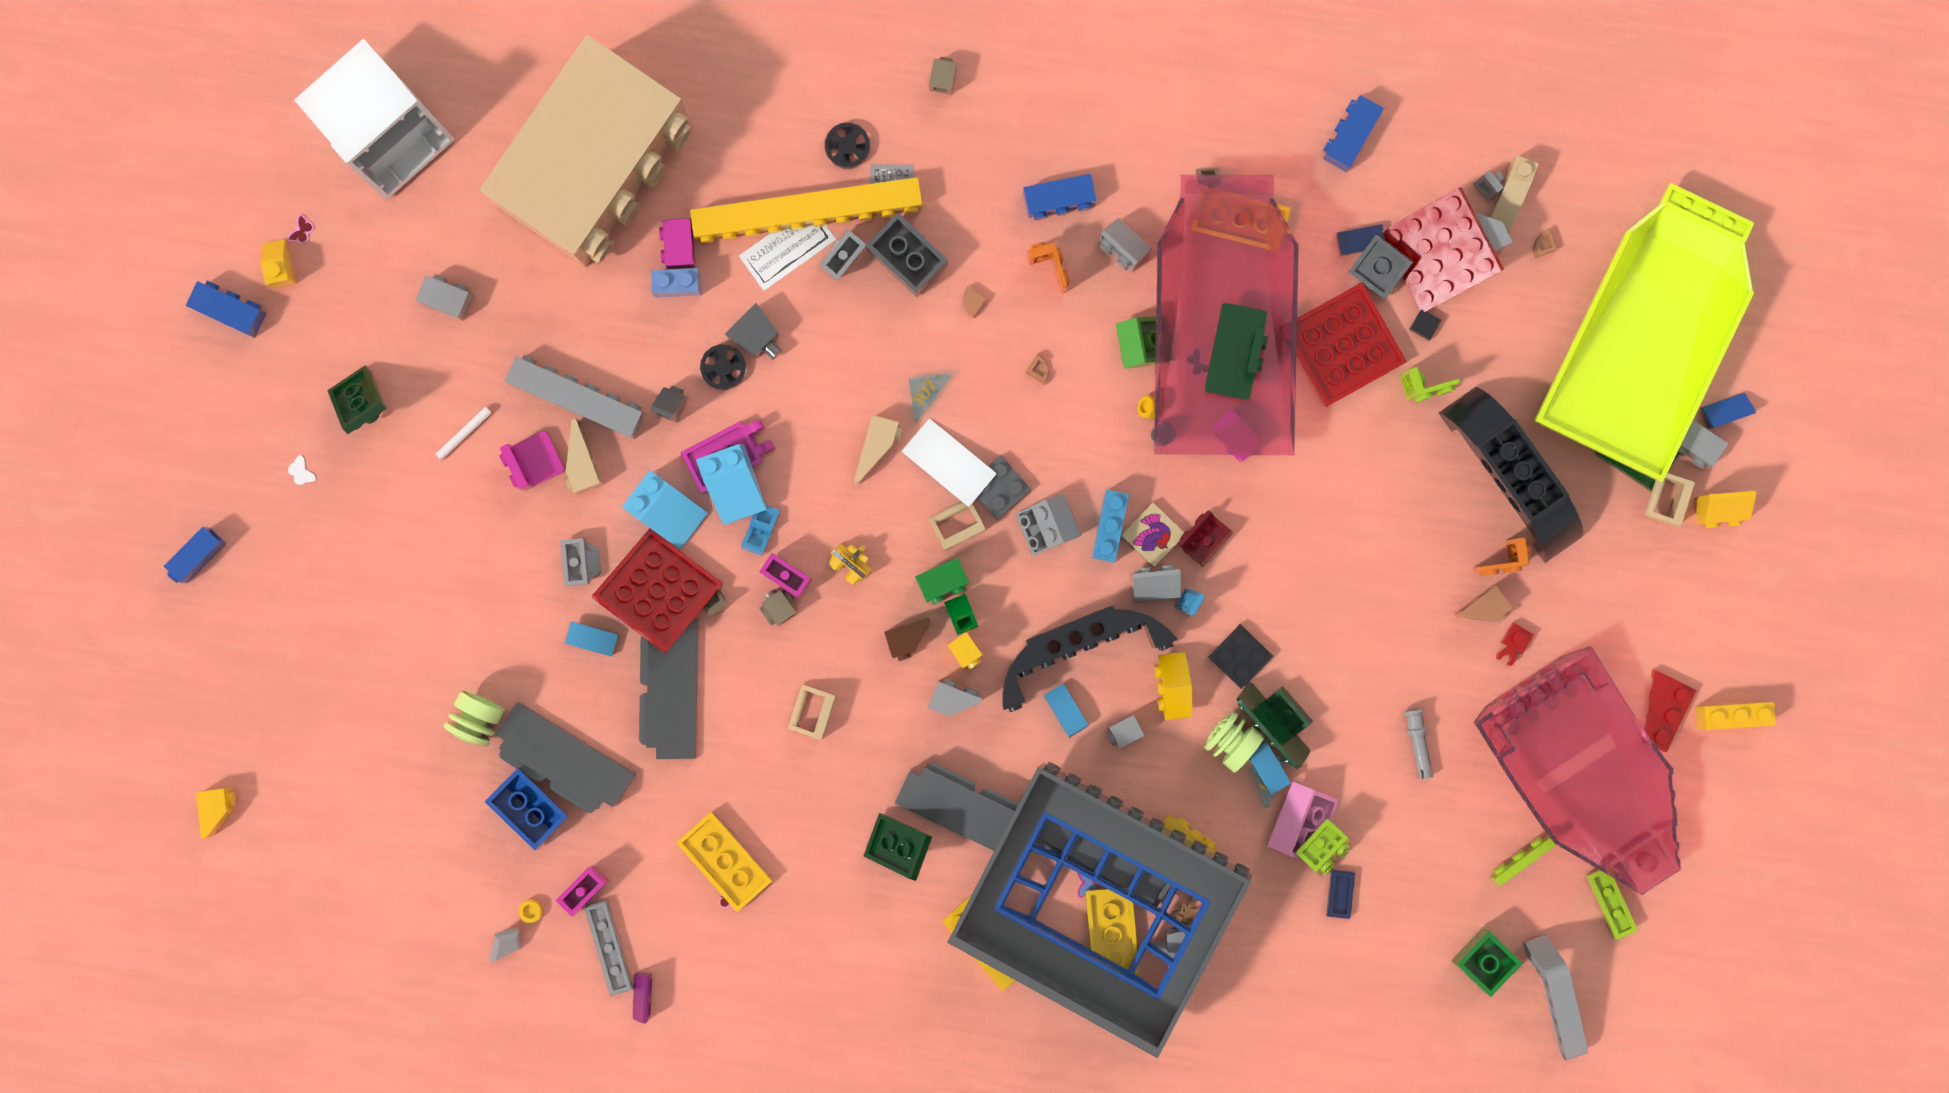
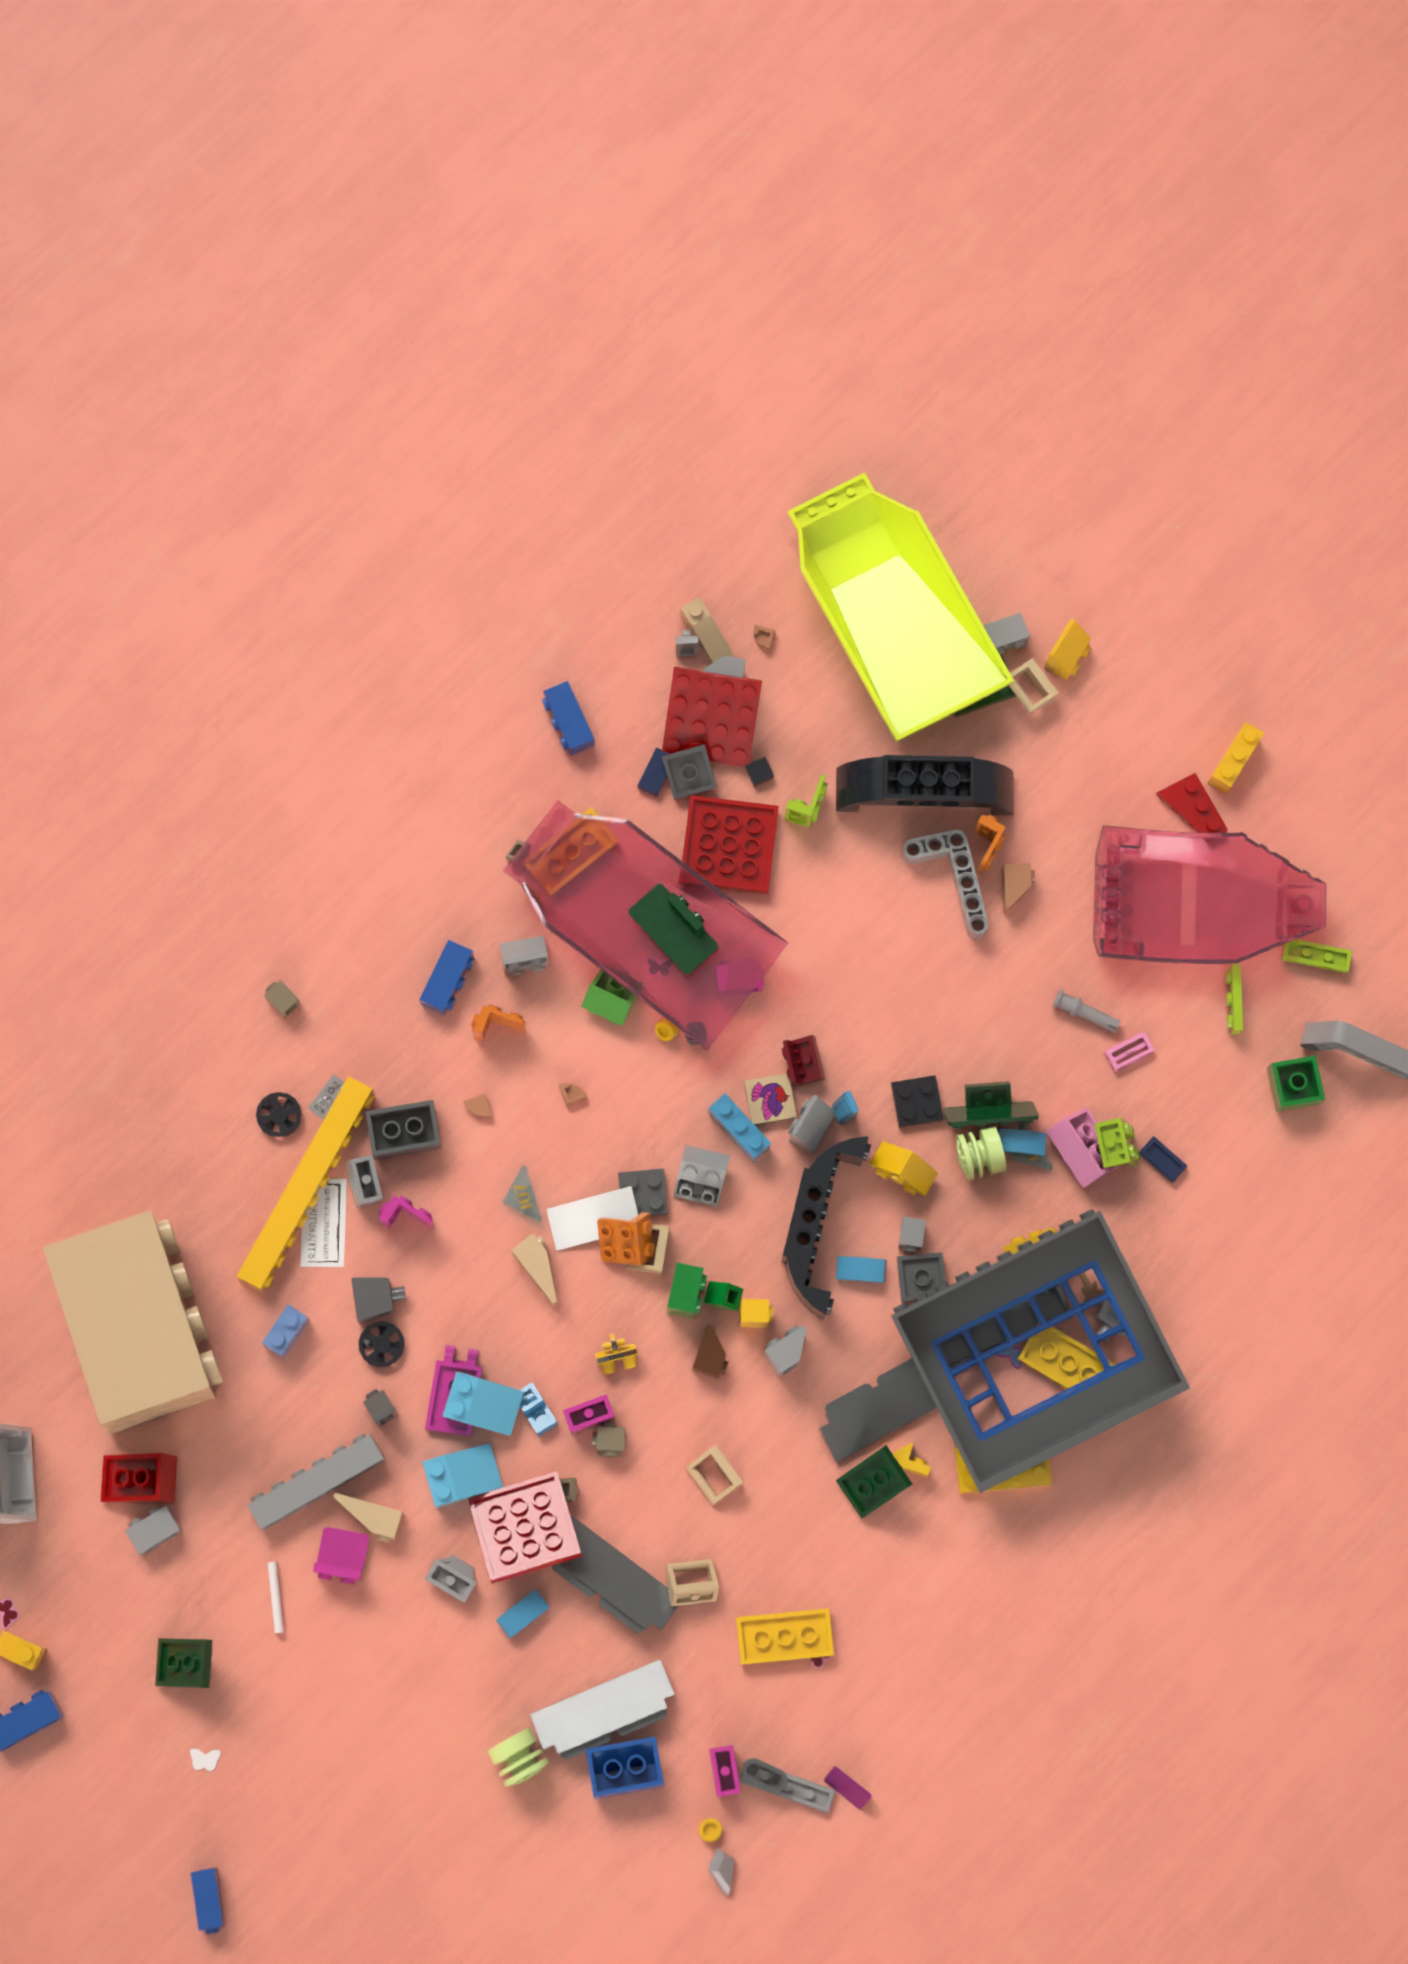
camera: 60 degrees left, 10 degrees down
(476, 255) = (139, 1478): none -> red slope
(601, 924) = (764, 1775): none -> dark grey plate
(678, 244) = (255, 1307): dark pink brick -> none
(704, 763) = (694, 1592): none -> tan tile
(831, 294) = (389, 1212): none -> dark pink bracket
(934, 854) = (916, 1466): none -> yellow slope
(948, 503) = (626, 1240): none -> orange bracket
(1096, 763) = (919, 1274): none -> dark grey plate
(1394, 793) = (1112, 1060): none -> bright pink tile
(1459, 554) = (958, 873): none -> light grey beam
(1515, 640) = (1059, 881): red plate -> none
(1727, 410) = (994, 595): blue slope -> none

